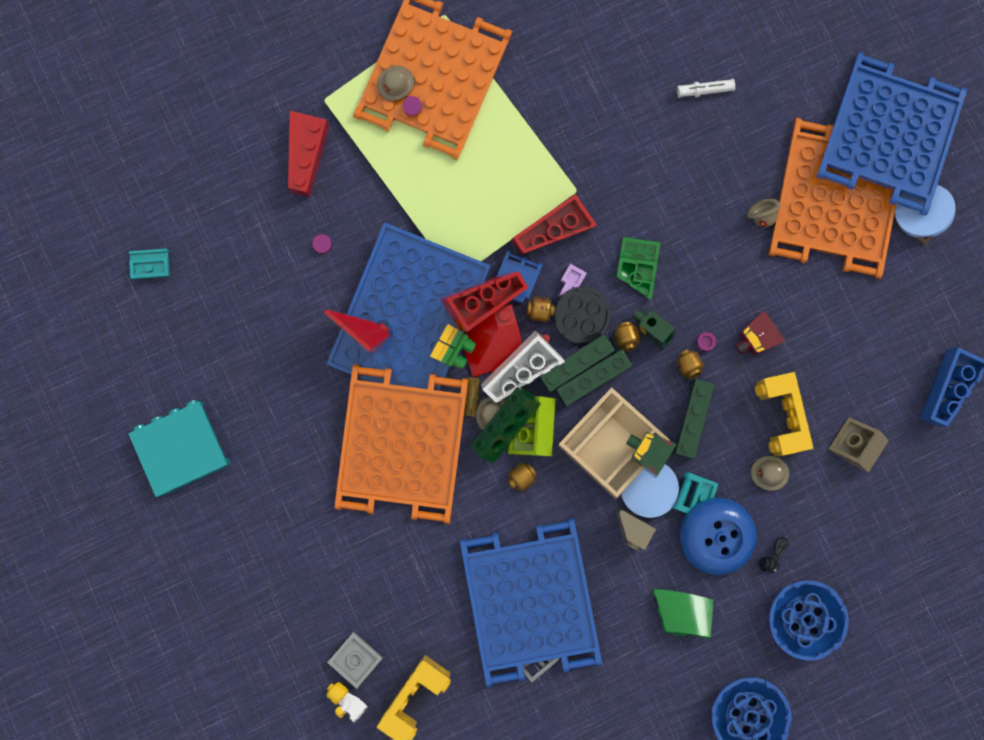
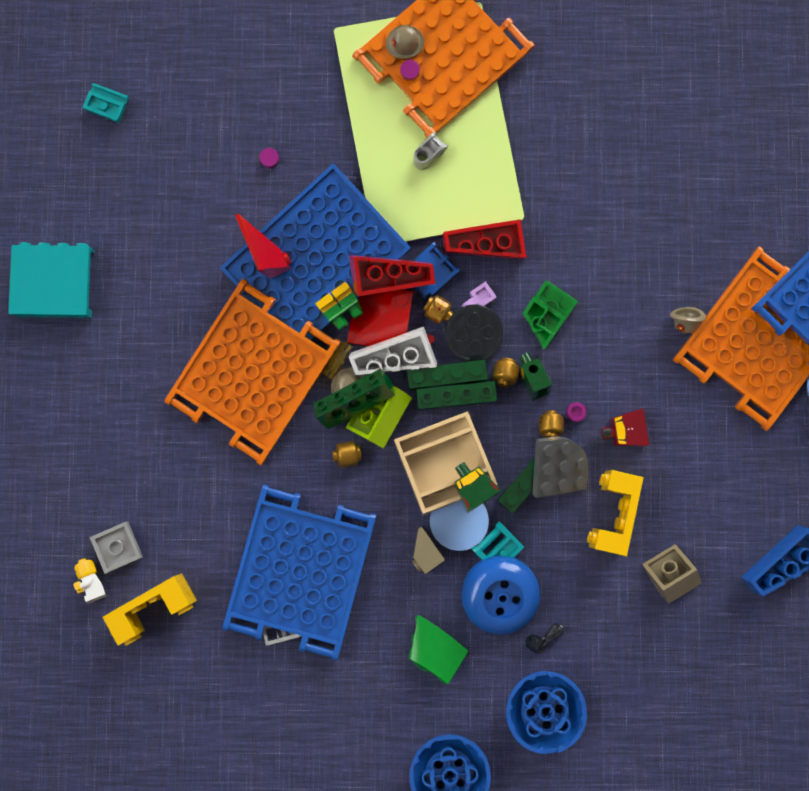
camera: 25 degrees right, 0 degrees up
(306, 146) = (295, 65): red wedge -> none
(464, 168) = (431, 148): none -> light grey piece
(705, 88) = (680, 177): white pin -> none
(715, 398) = (559, 467): none -> dark grey plate
(770, 473) = (577, 560): dark tan hat -> none

